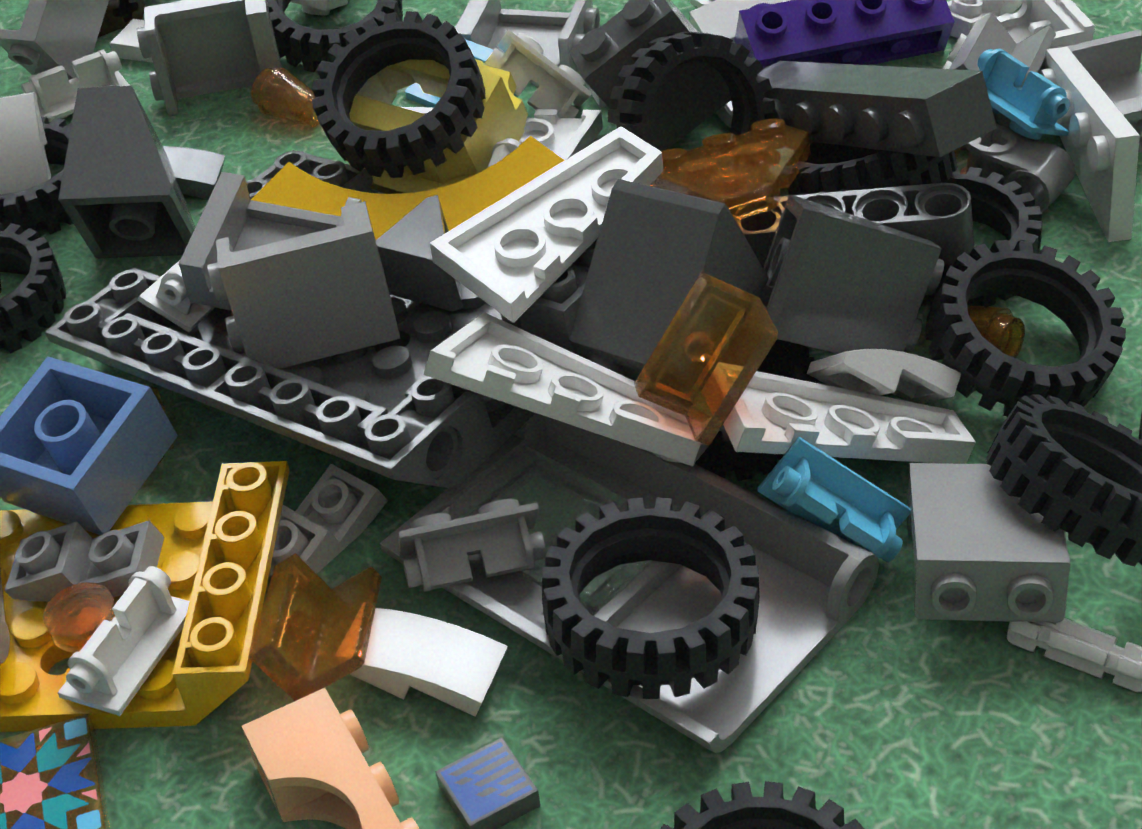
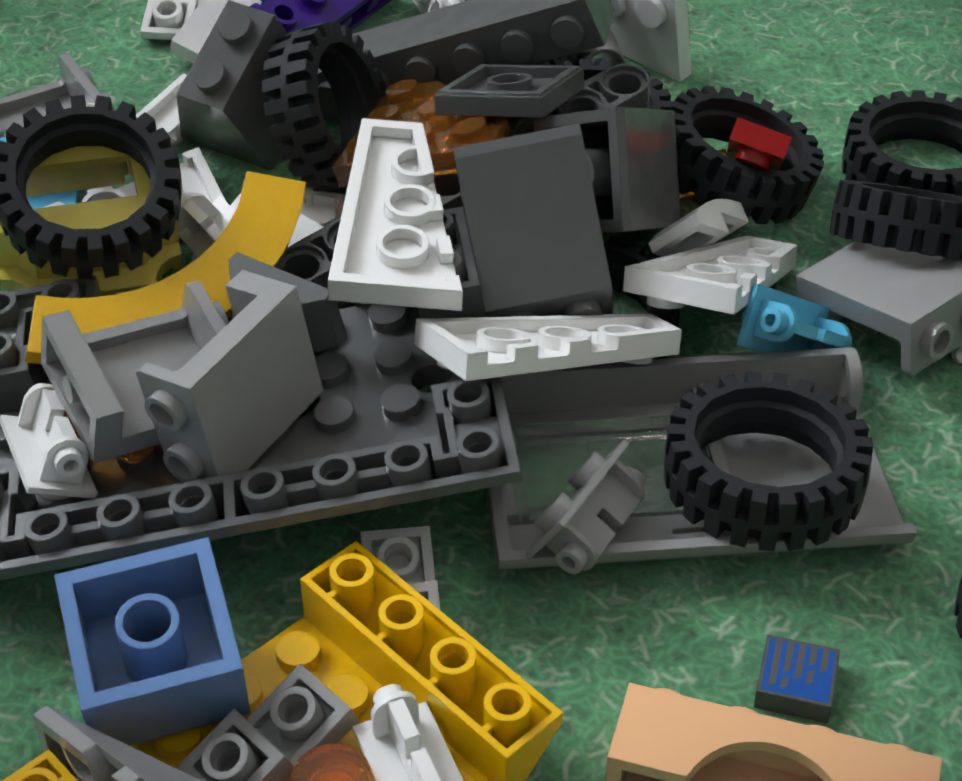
camera: 50 degrees left, 0 degrees up
(312, 631) = (550, 647): clear orange panel -> none
(430, 657) = (630, 620): white slope -> none
(708, 355) = (654, 256): clear orange panel -> none
(810, 162) = (510, 90): none -> dark grey tile
(1022, 327) = (757, 146): none -> red plate

